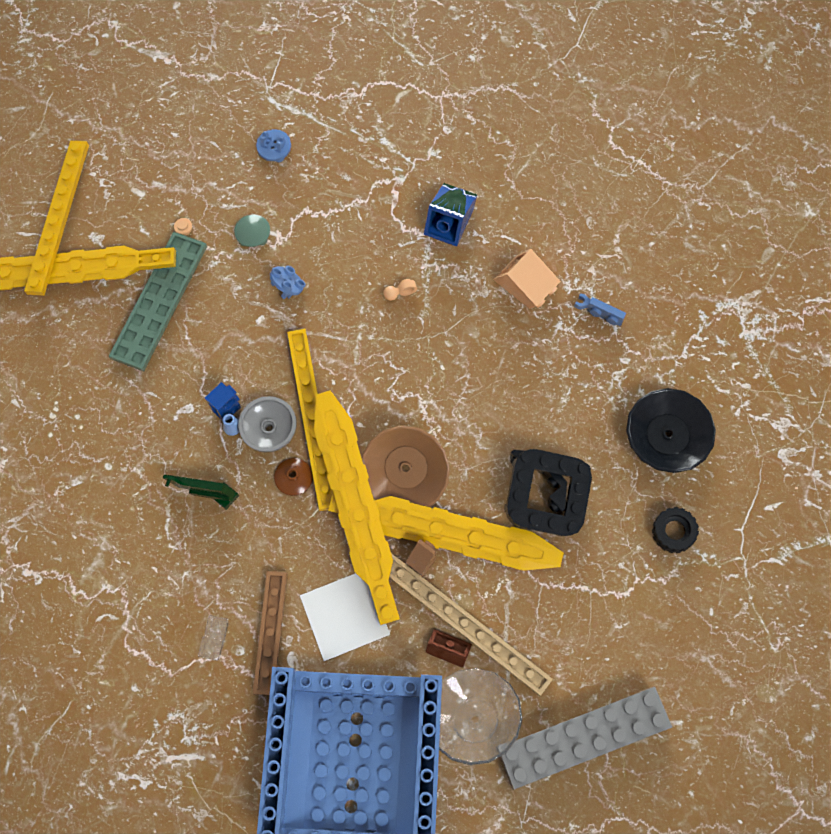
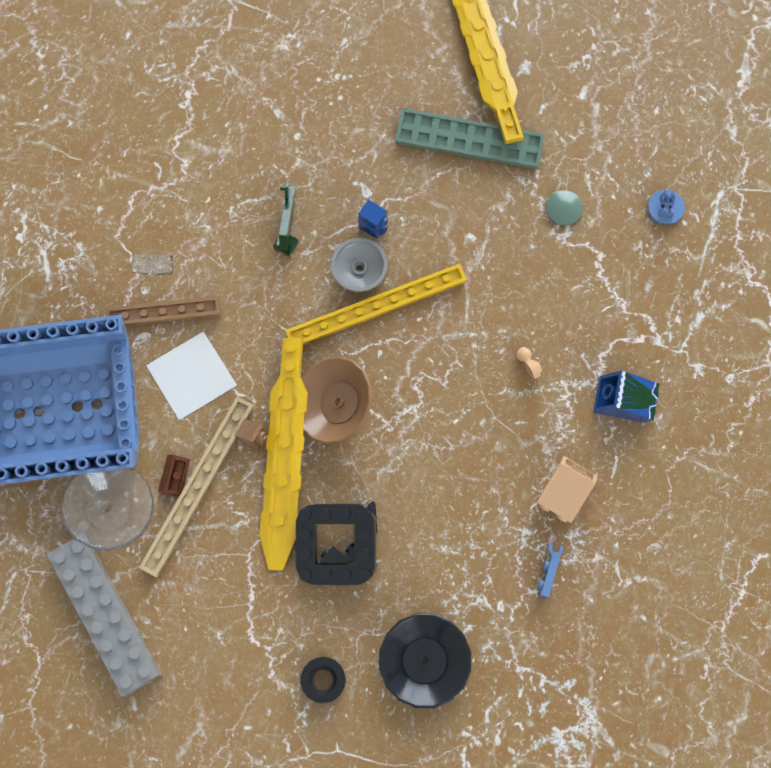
camera: 75 degrees right, 5 degrees up
(56, 218) = (535, 25): yellow plate -> none
(183, 226) = (553, 142): light nougat plate -> none
(230, 425) = (354, 231): light blue cone -> none
(286, 281) = (512, 244): medium blue plate -> none
(297, 484) = (316, 309): dark orange dish -> none
(355, 502) = (293, 359): yellow plate -> none

